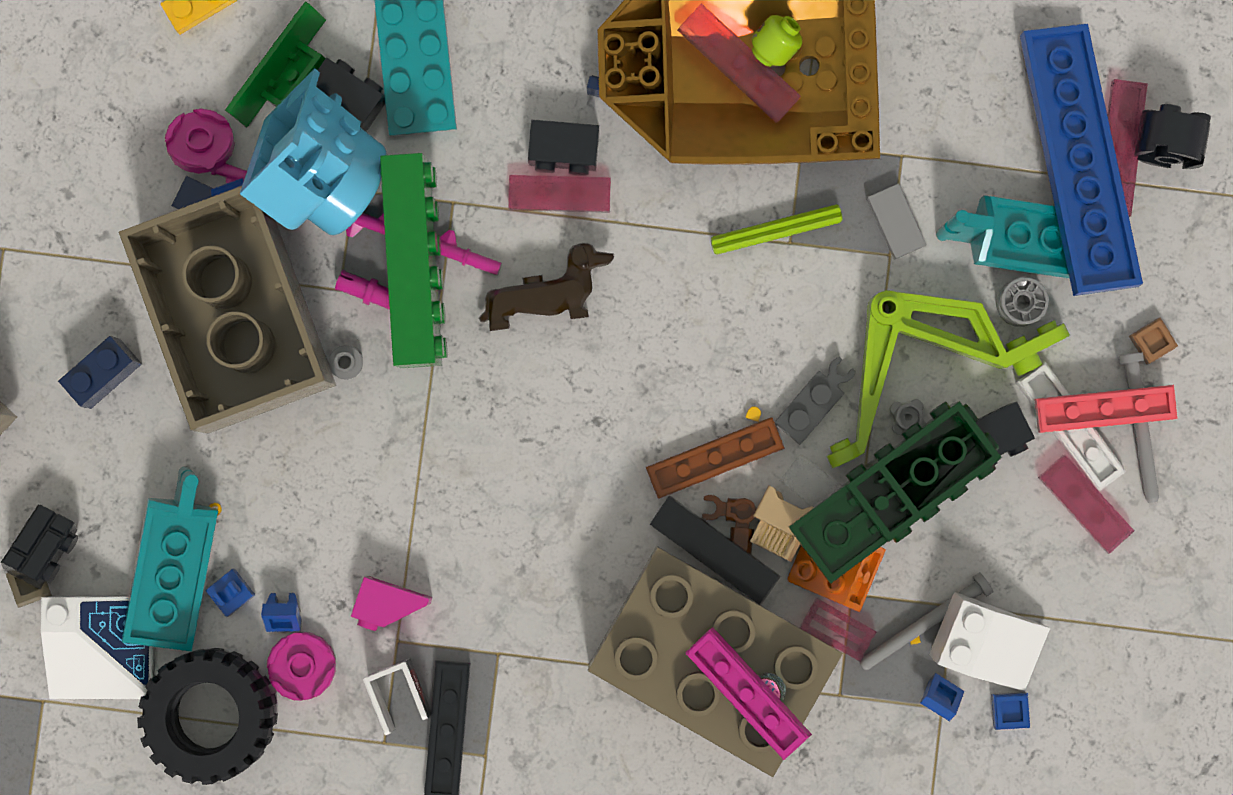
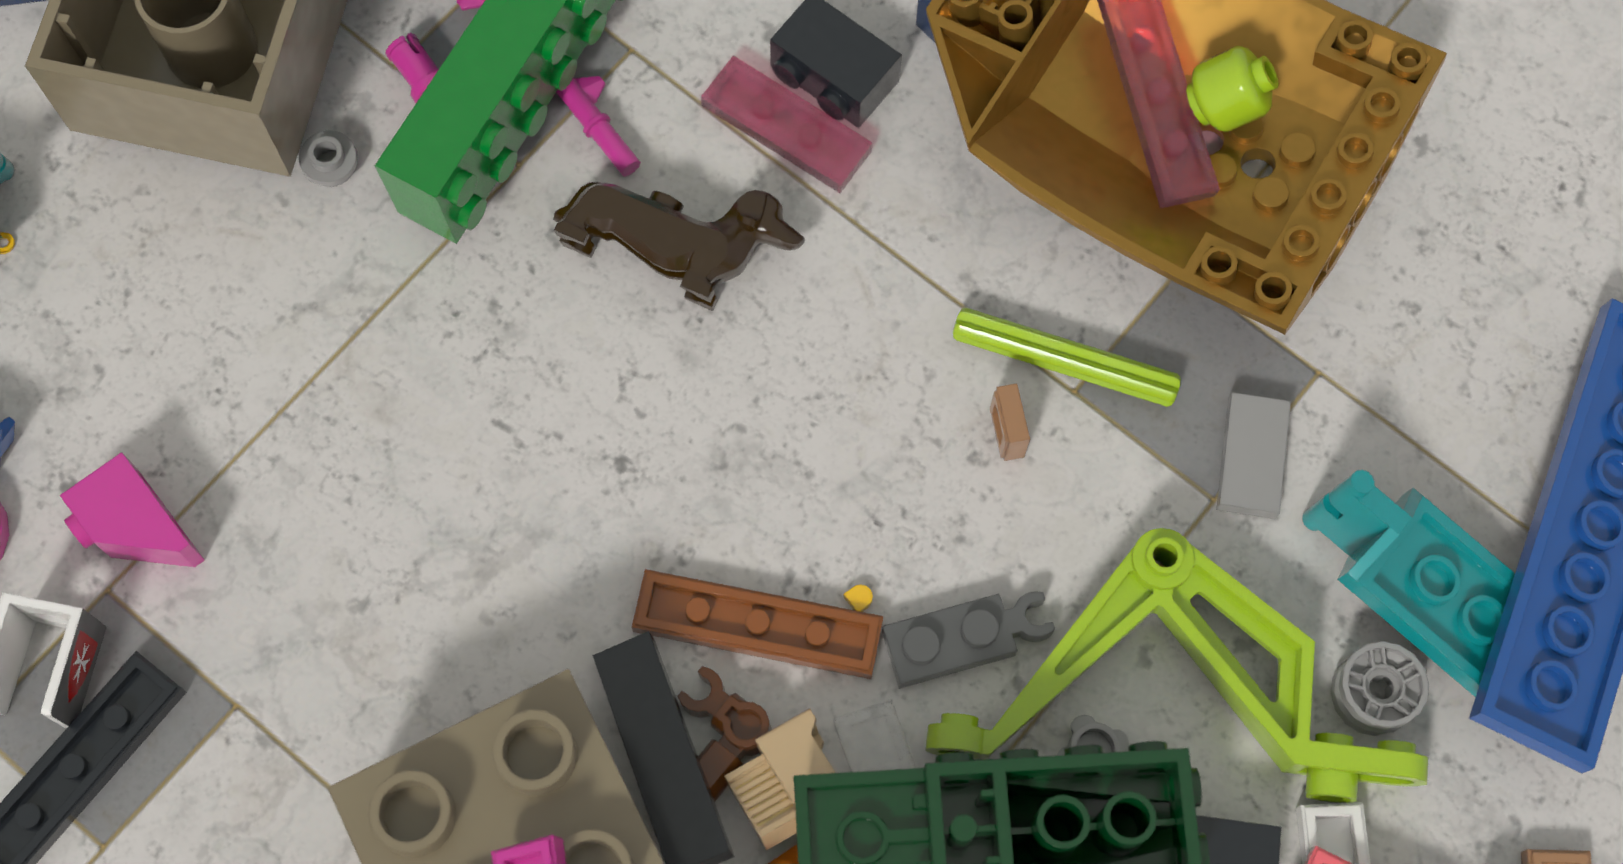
camera: 30 degrees right, 15 degrees down
(771, 283) = (1009, 422): none -> medium nougat tile

